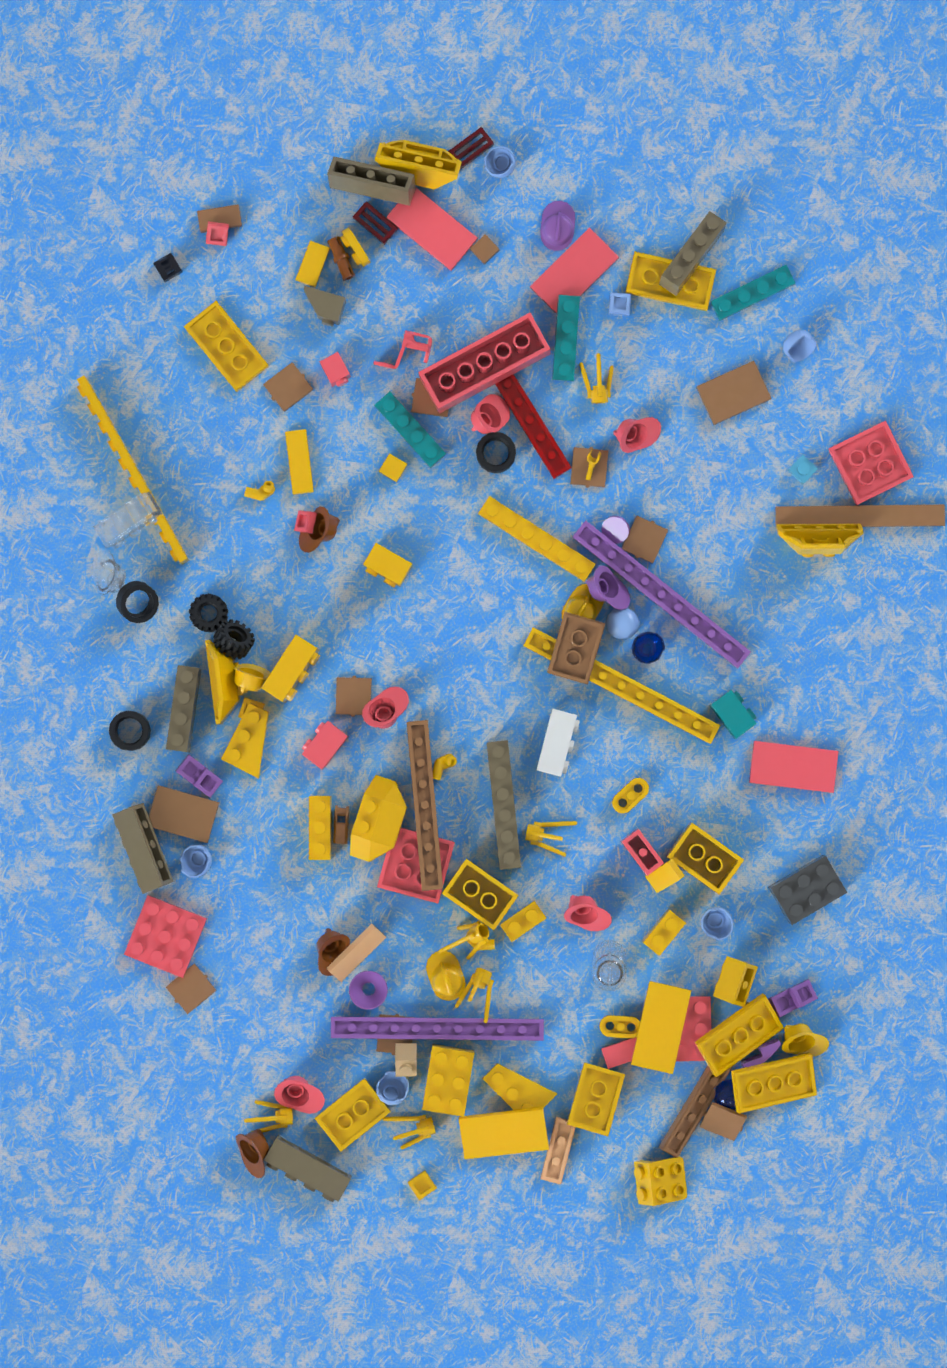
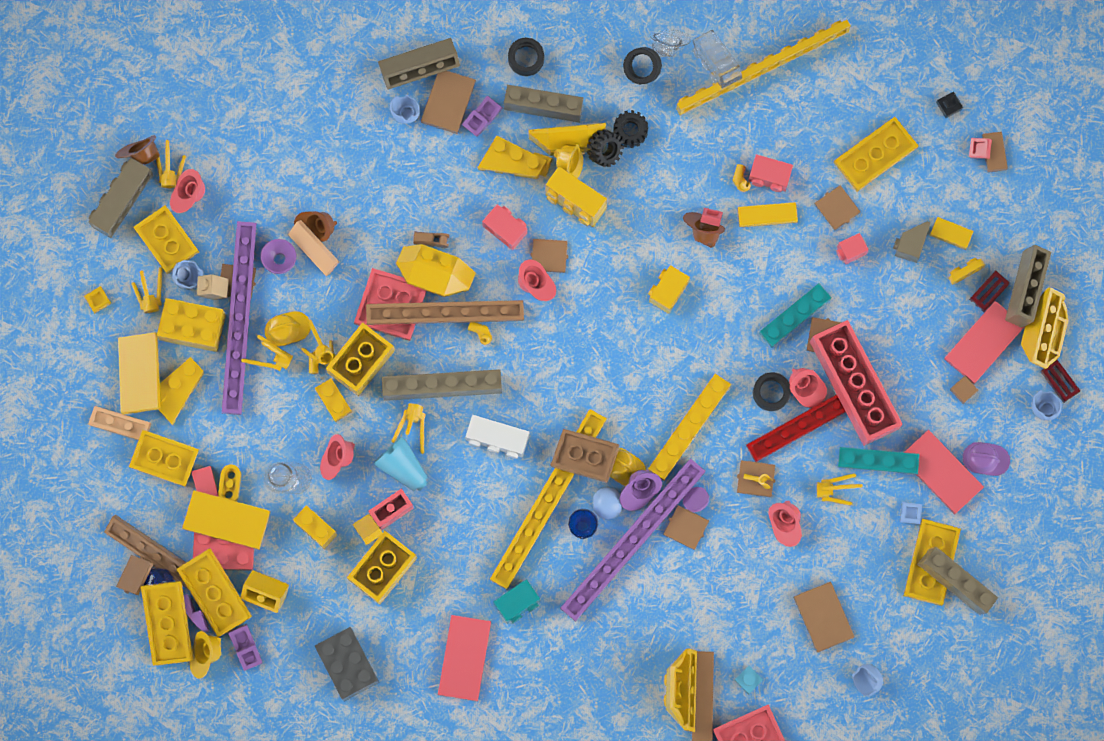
camera: 90 degrees right, 10 degrees down
(165, 936) = (338, 82): coral plate -> none
(191, 989) = (290, 103): medium nougat piece -> none
(254, 459) = (770, 173): none -> coral brick
(320, 827) = (429, 219): yellow brick -> none
(341, 258) = (956, 258): dark orange pin -> none
(393, 467) = (759, 298): yellow tile -> none
(409, 342) = (877, 315): coral piece -> none
(593, 843) = (402, 465): none -> medium azure cone
(628, 793) = (446, 502): yellow plate -> none
(660, 1181) = (83, 515): yellow bracket -> none
(717, 923) = (320, 577): light blue hair -> none
(752, 292) = (920, 639): teal plate -> none

